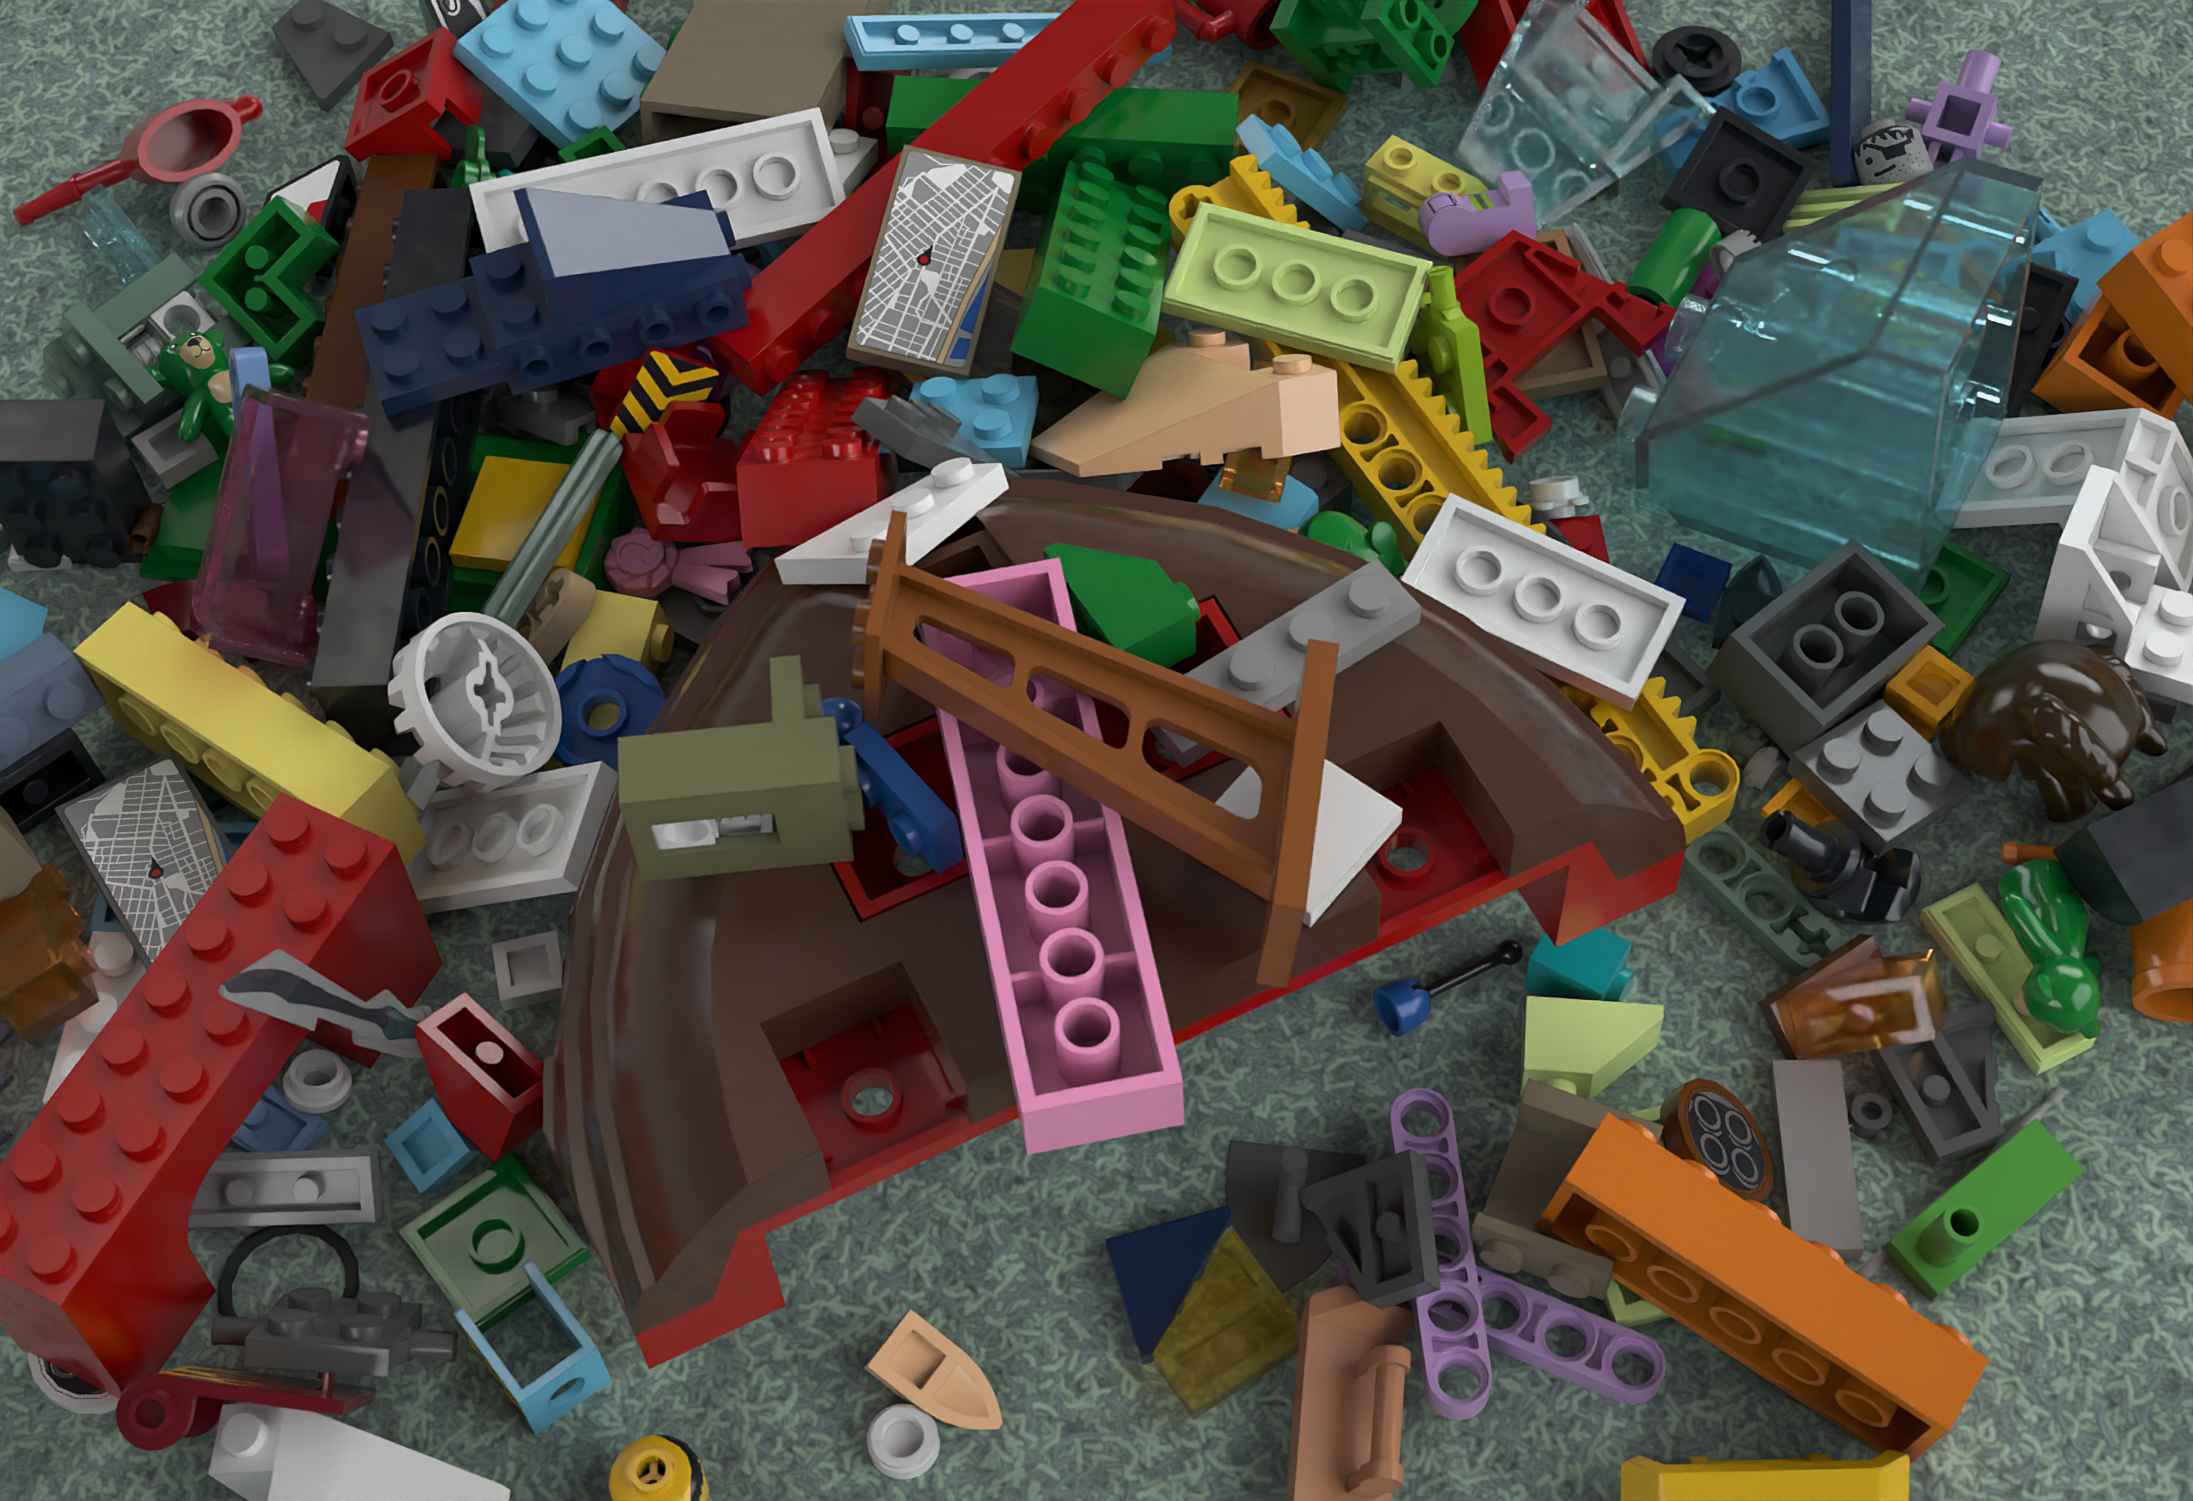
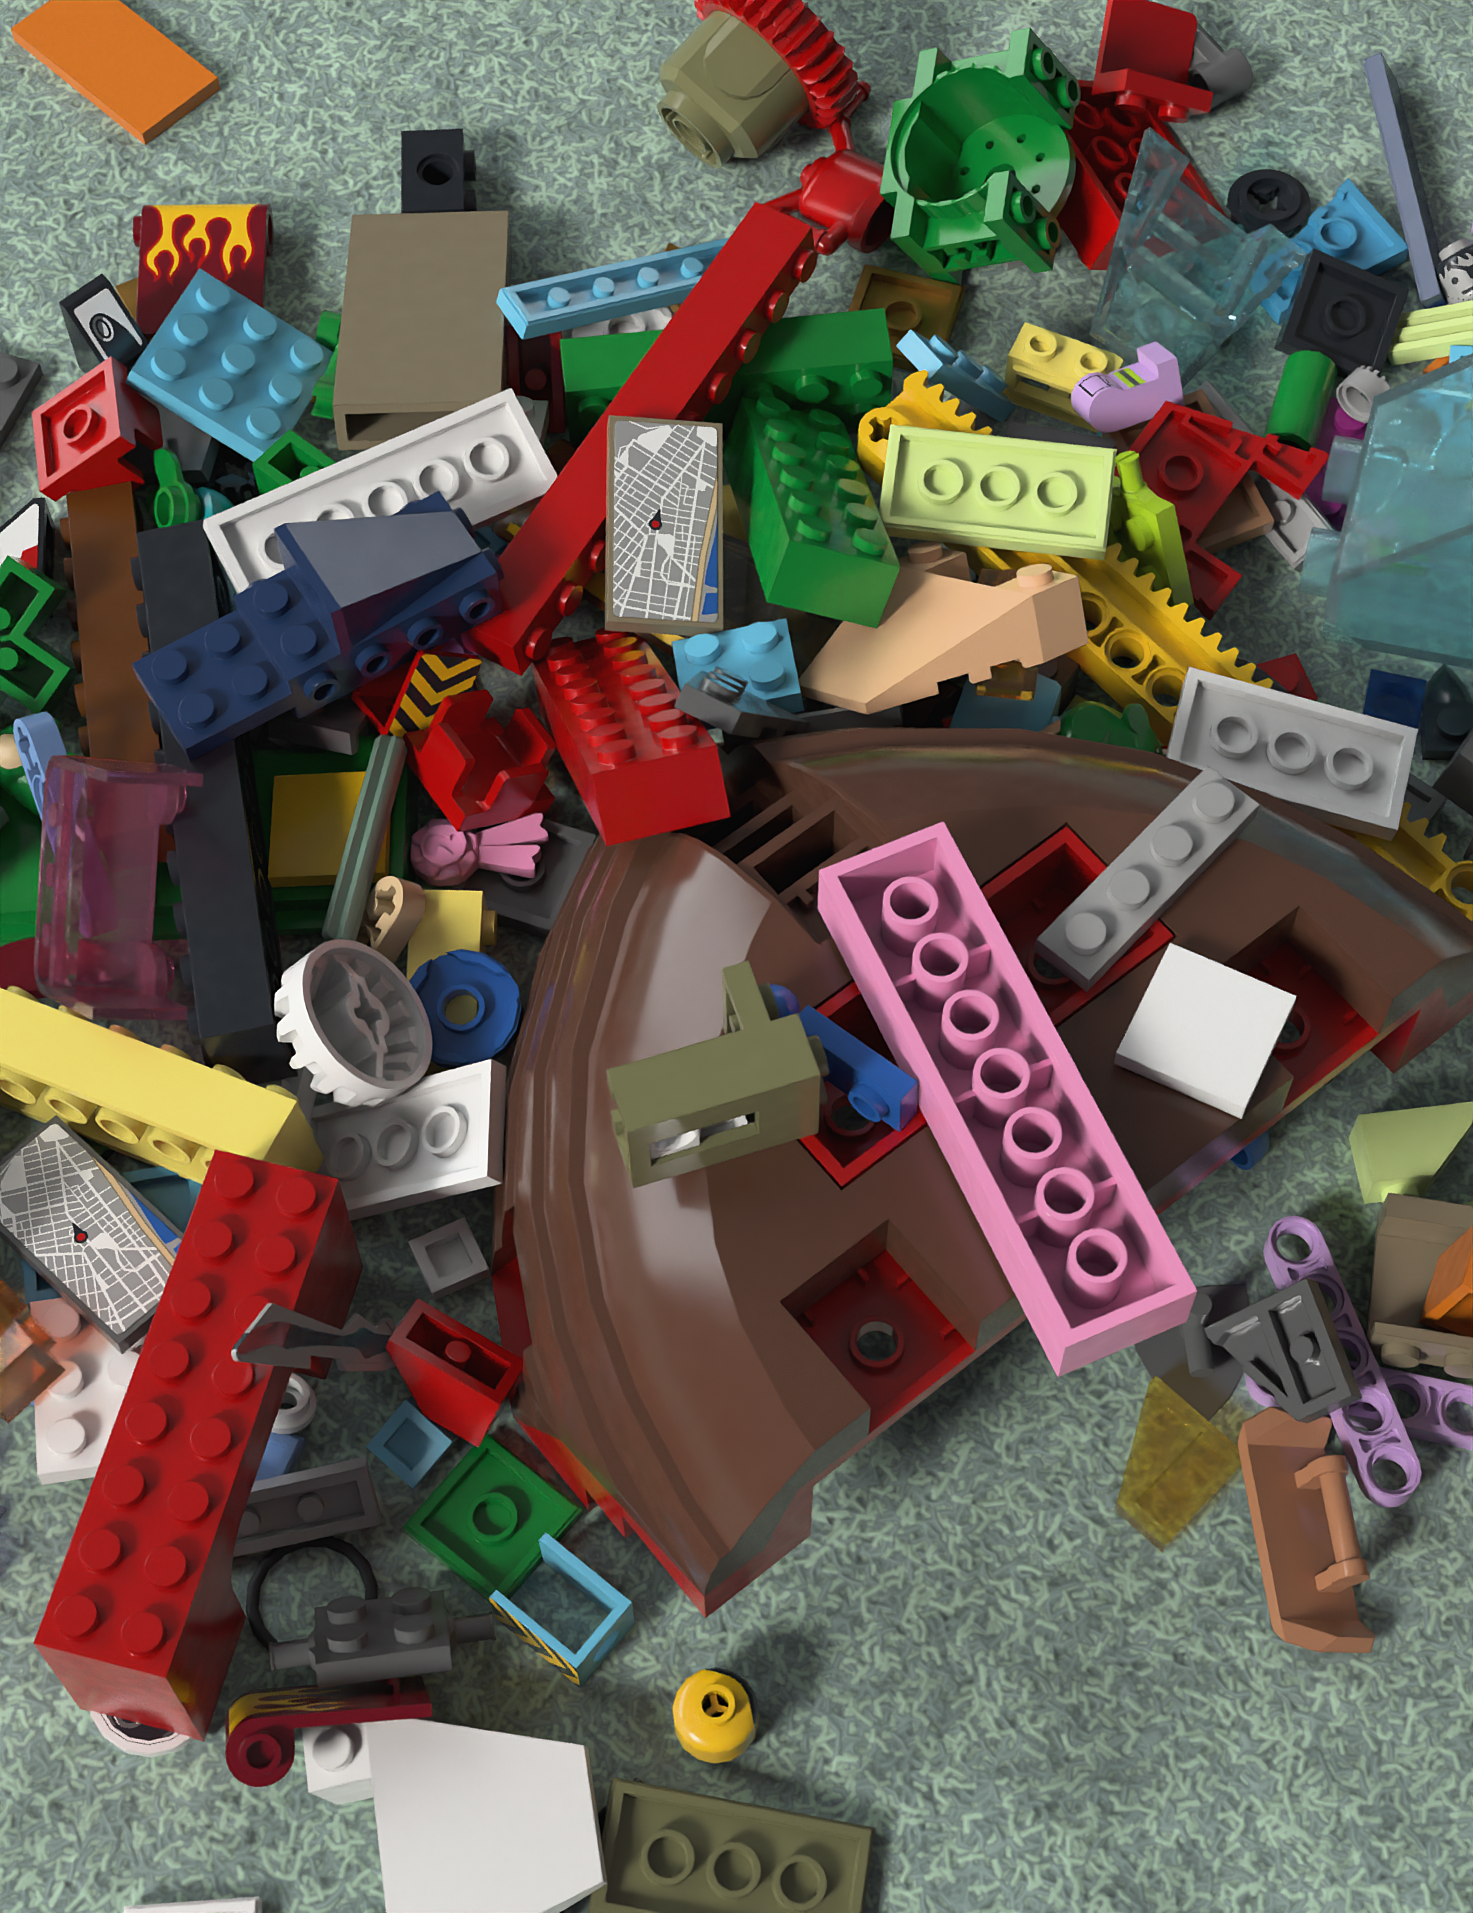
camera: 15 degrees left, 5 degrees up
(903, 1441) = (914, 1625): white tile -> none
(934, 511) = (754, 810): white wing -> none
(935, 1375) = (927, 1560): light nougat plate -> none
(1128, 603) = (1008, 853): green slope -> none
(1160, 1268) = (1096, 1426): dark blue tile -> none
(1260, 853) = (1205, 963): dark orange piece -> none
(1555, 496) = (1255, 641): white plate -> none
(1582, 968) = (1377, 1089): teal brick -> none

